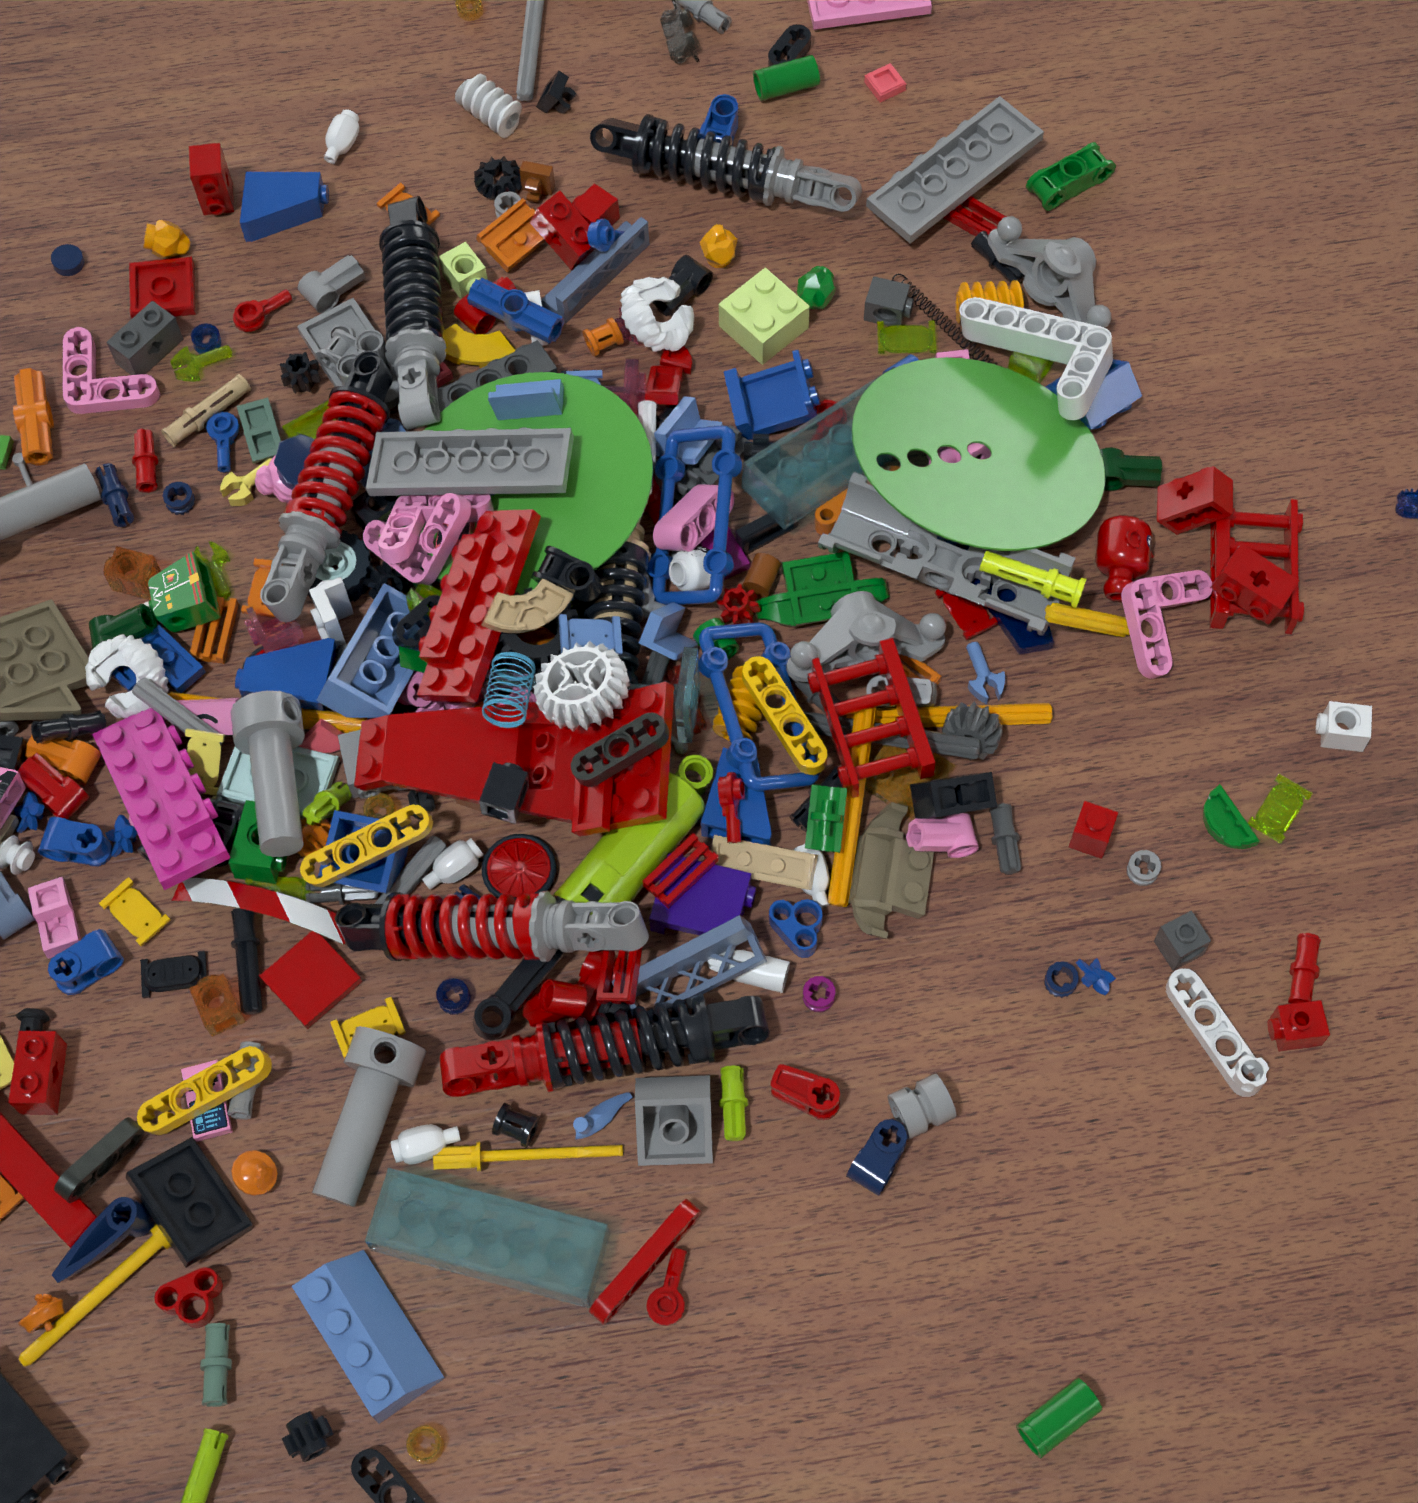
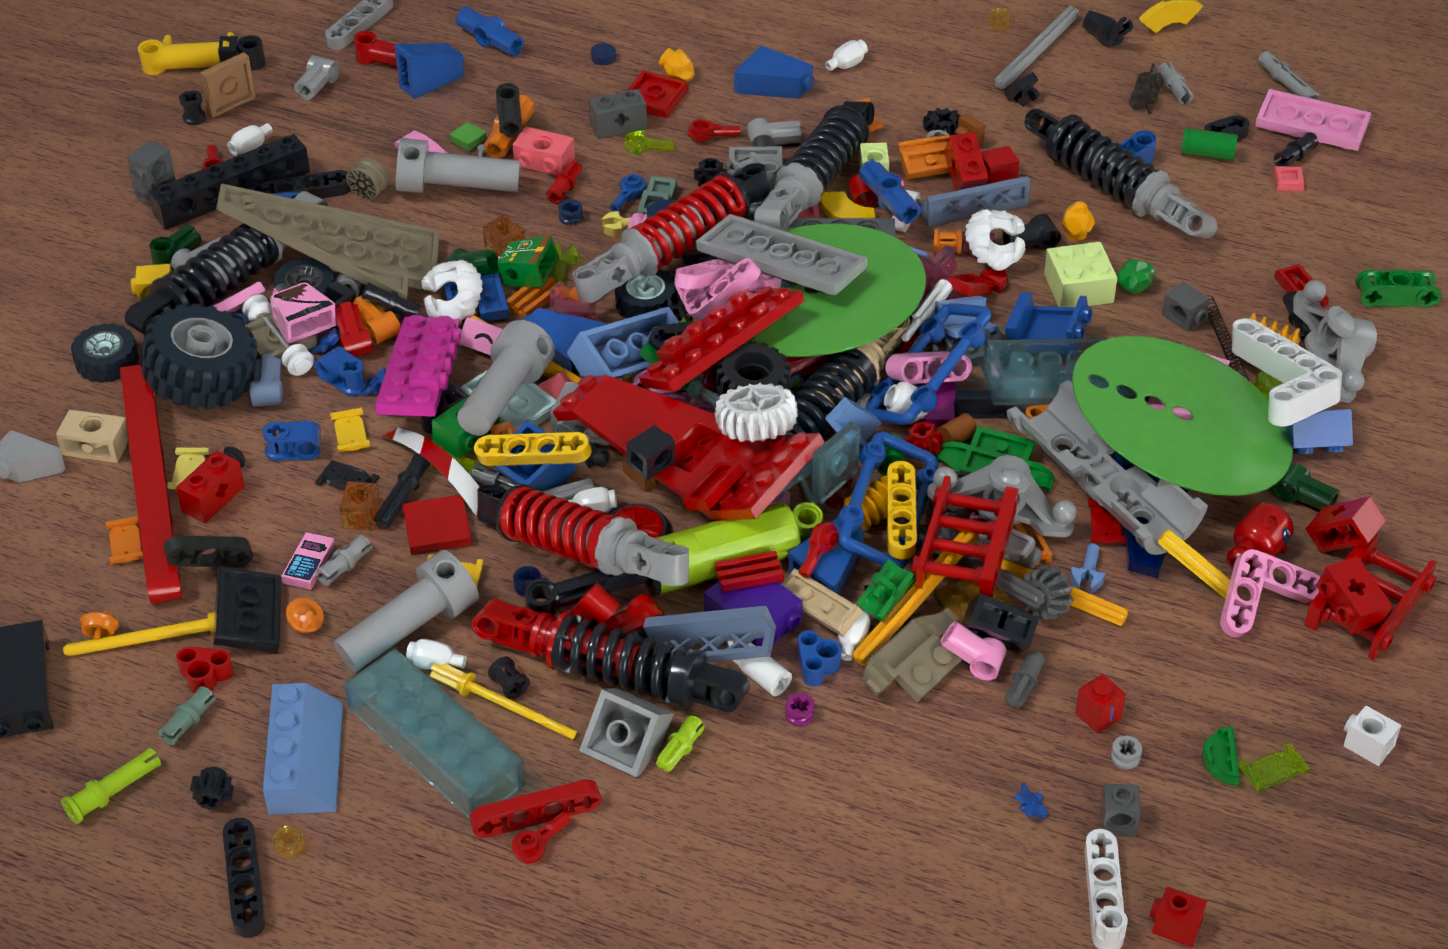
camera: 30 degrees right, 20 degrees down
(29, 403) = (509, 109): none -> pearl dark grey piece
(54, 916) = (297, 403): bright pink slope -> none
(80, 426) = (543, 150): none -> coral brick
(94, 388) = (588, 140): bright pink beam -> none
(107, 1231) = (182, 599): dark blue piece -> none
(114, 495) = (528, 191): dark blue pin -> none
(169, 707) = (467, 325): light grey axle -> none
(176, 432) = (617, 170): tan pin -> none
(198, 336) = (661, 130): clear blue bush -> none
(203, 1087) = (275, 549): yellow beam -> none
(205, 757) = (467, 359): light yellow piece -> none
(211, 179) = (733, 39): red brick -> none
(326, 802) = (518, 417): lime axle -> none
(330, 605) = (621, 302): white bracket -> none
(489, 104) = (968, 76): white piece -> none
(506, 701) = (696, 393): medium azure piece -> none
(527, 399) = (853, 237): medium blue panel -> none
(527, 611) = (751, 350): tan tile -> none
(566, 571) = (798, 346): black piece -> none
(590, 630) = (802, 393): medium blue piece -> none
(599, 1116) = (568, 706): medium blue bar -> none
(602, 235) = (987, 171): blue plate -> none
(631, 979) = (657, 608): red tile -> none
(634, 754) = (780, 452): pearl dark grey beam -> none
(802, 1089) = (740, 763): red piece -> none
(873, 43) = (1296, 150): none -> black pin
(875, 1161) = (762, 833): dark blue piece -> none
(906, 338) = (1186, 336): clear neon green piece -> none
(923, 1105) = (822, 814): light grey wheel -> none
(954, 169) = (1302, 244): light grey plate -> none
(1048, 582) = (1175, 514): neon yellow pin -> none
(1066, 989) = (1000, 800): dark blue bush -> none
(1304, 968) = (1214, 881): red pin -> none

